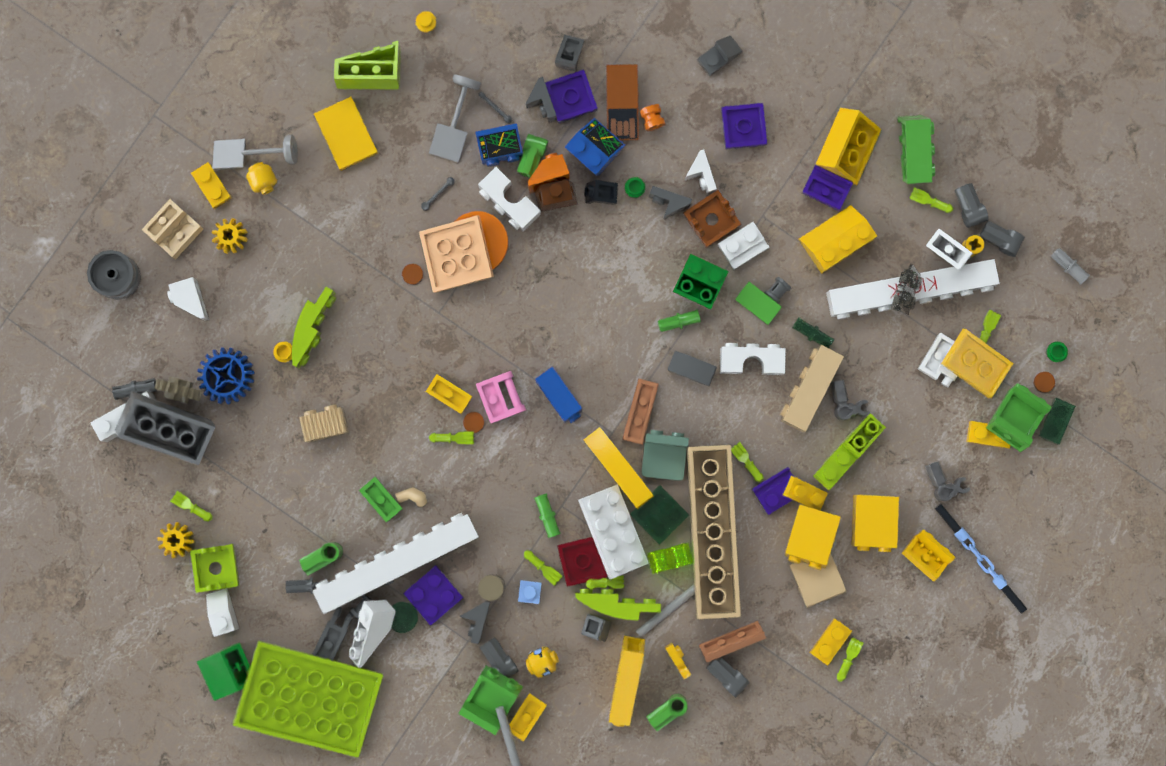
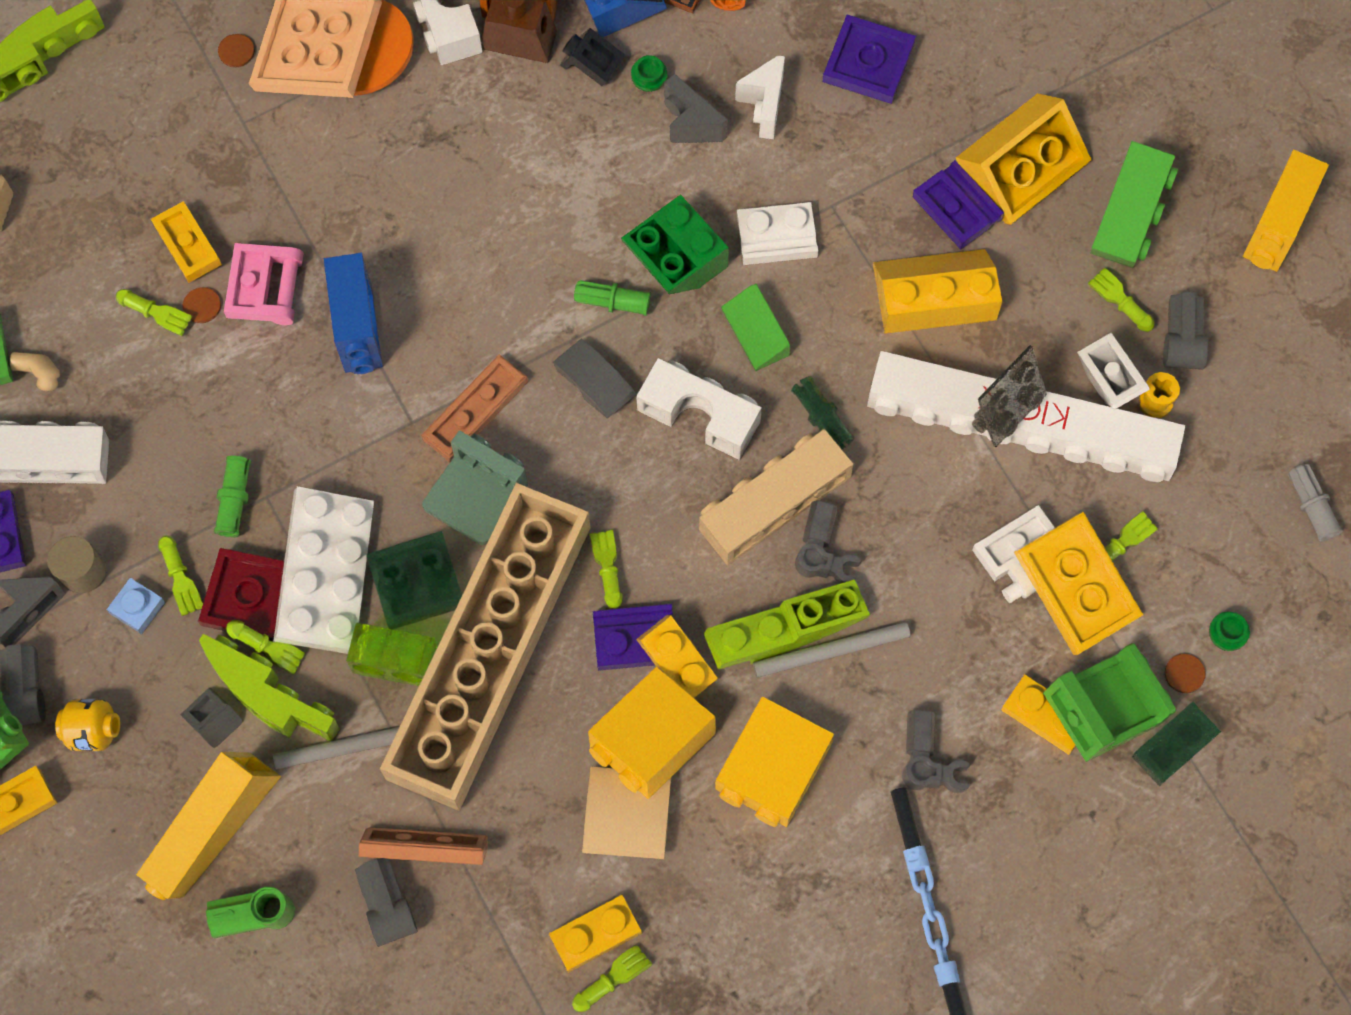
camera: 30 degrees right, 15 degrees down
(618, 468) = (389, 475): yellow slope -> none
(676, 655) = (315, 822): yellow plate -> none
(720, 207) = (757, 148): dark orange piece -> none
(778, 289) = (799, 320): dark grey bush -> none
(874, 451) = (831, 649): none -> light grey bar
(928, 554) = (839, 862): yellow bracket -> none
(994, 118) = (1285, 211): none -> yellow brick
(1007, 240) = (1221, 414): dark grey piece -> none

